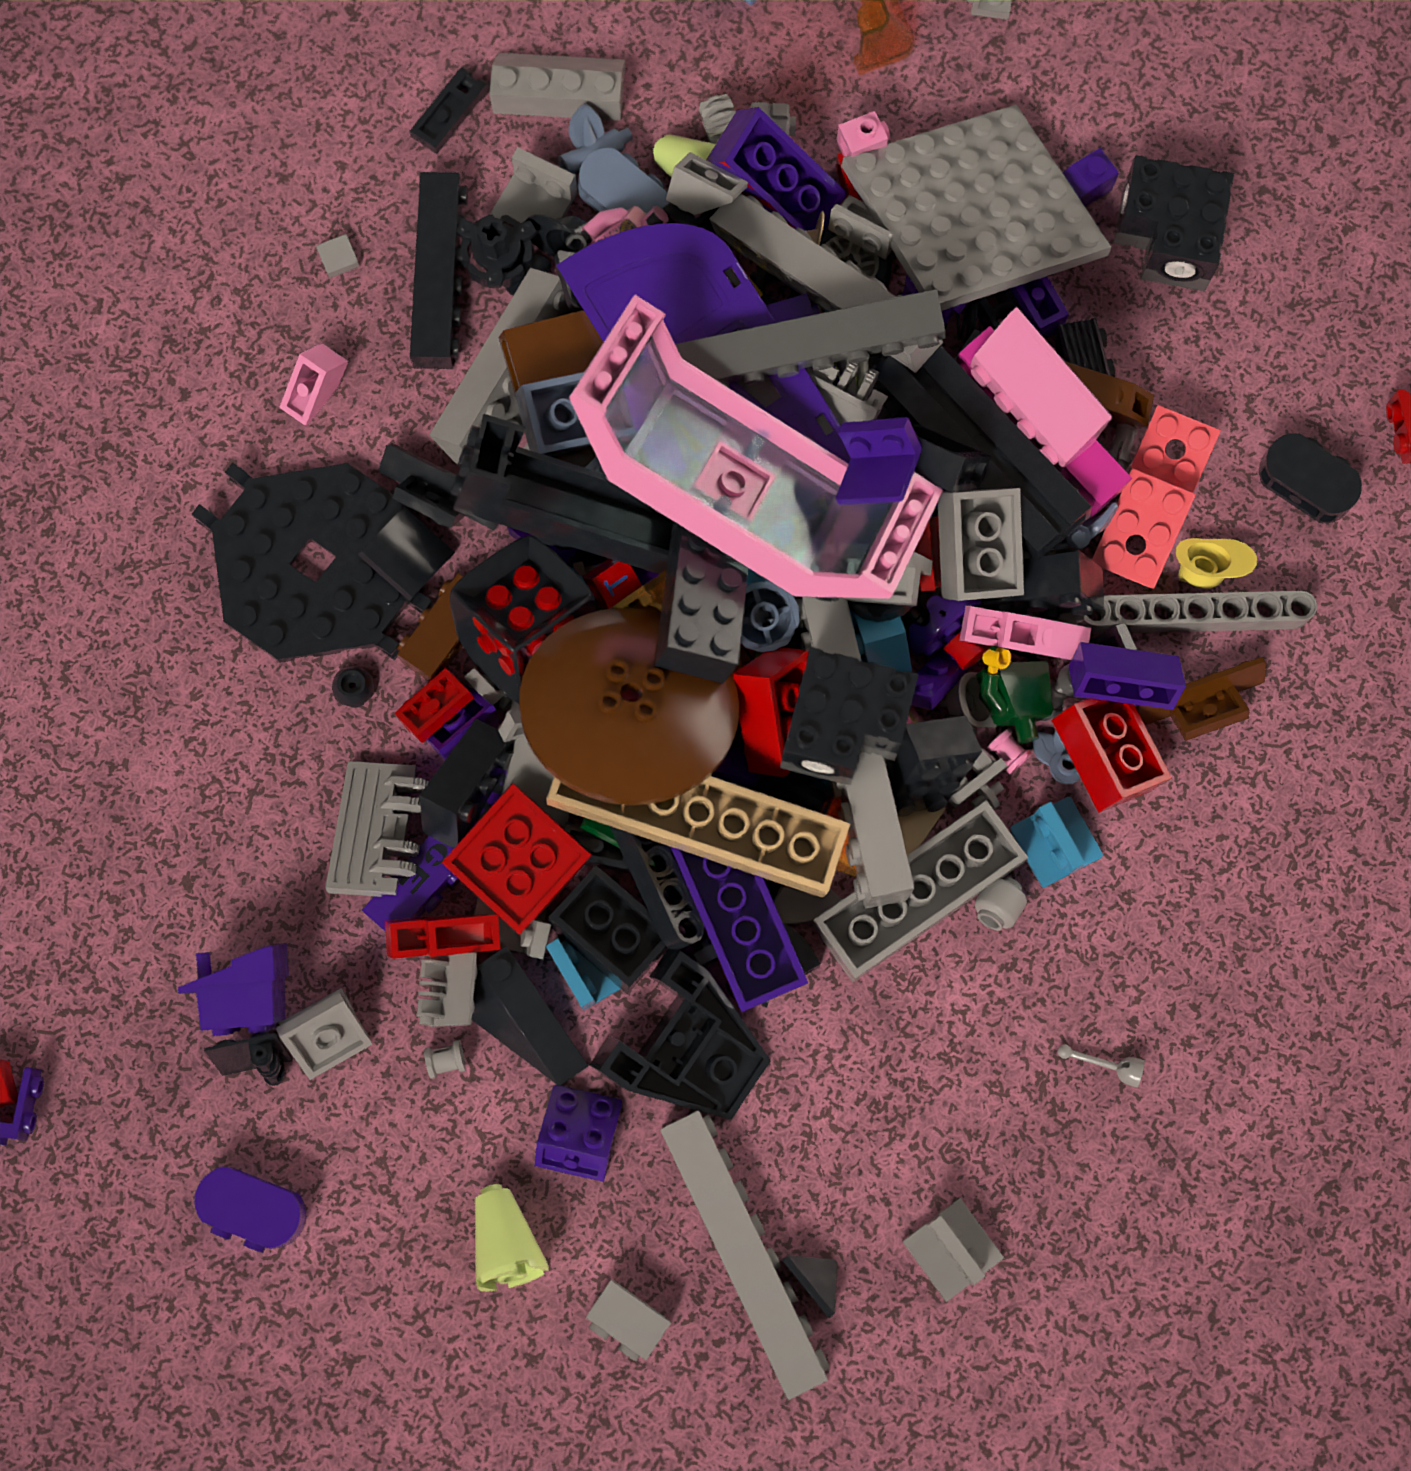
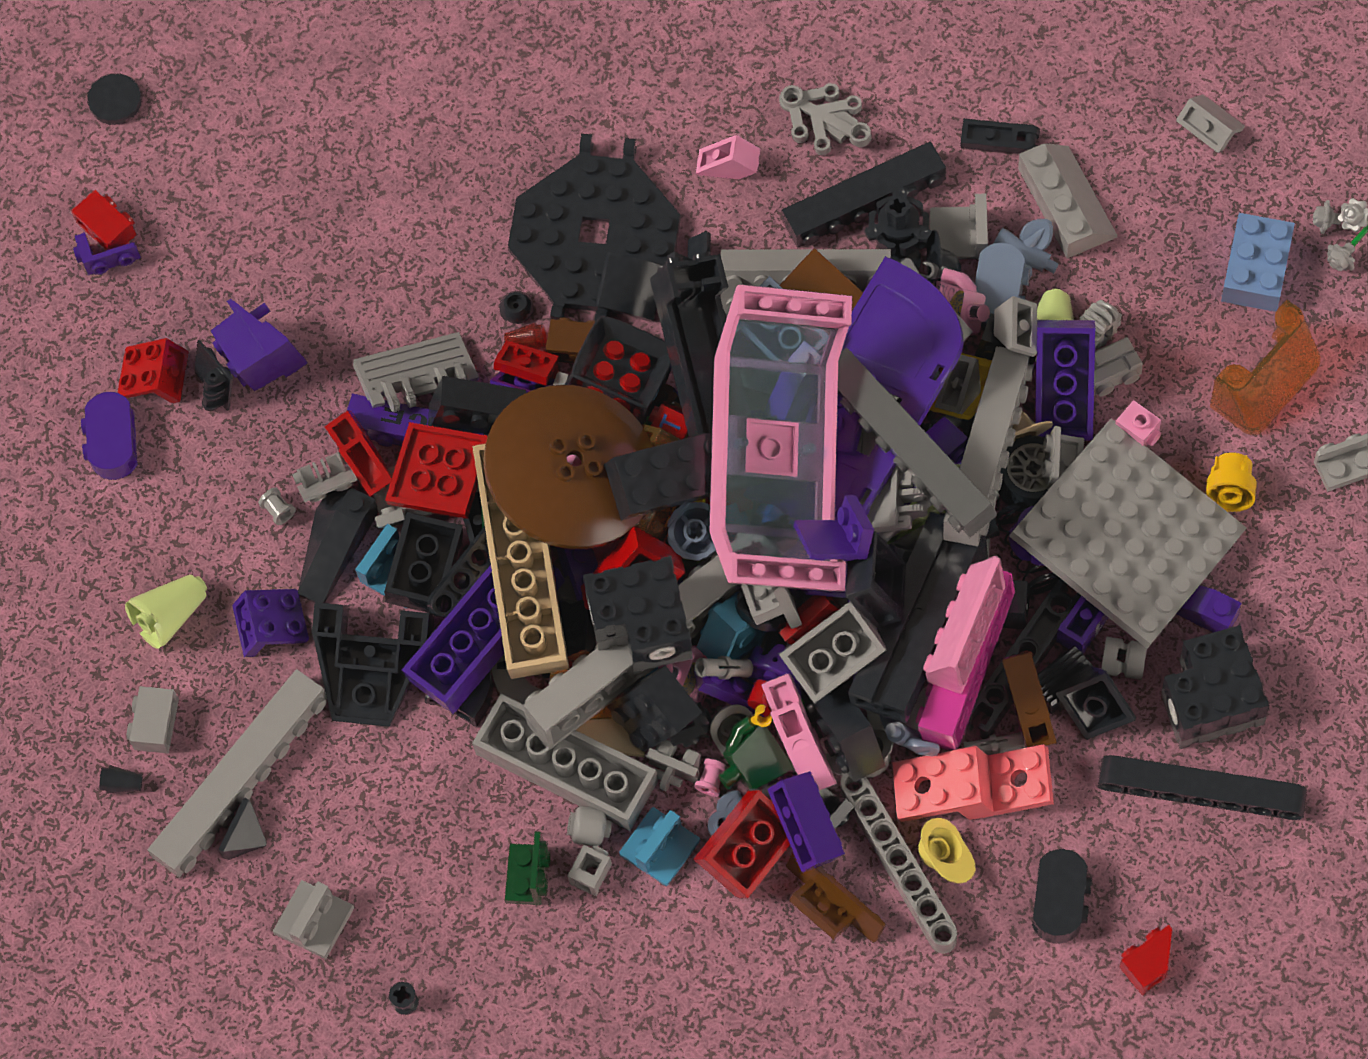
camera: 70 degrees right, 10 degrees down
(196, 1122) = (155, 369): none -> red bracket
(317, 265) = (821, 114): none -> light grey plant
(324, 1034) = (253, 417): light grey bracket -> none
(398, 688) = (530, 335): none -> clear red cone
(678, 1395) = (119, 780): none -> black cone
(926, 667) = (737, 667): none -> light grey pin
(961, 90) = (1232, 482): none -> yellow piece
(1019, 991) = (526, 872): none -> dark green bracket
(1062, 929) = (589, 858): none -> light grey brick
(1092, 288) = (1134, 660): none -> light grey wheel
(1107, 1192) = (397, 991): none -> black bush
(1128, 1070) = (509, 981): light grey hinge -> none
(1131, 335) = (1095, 702): none -> black slope
(1261, 290) = (1202, 787): none -> black beam

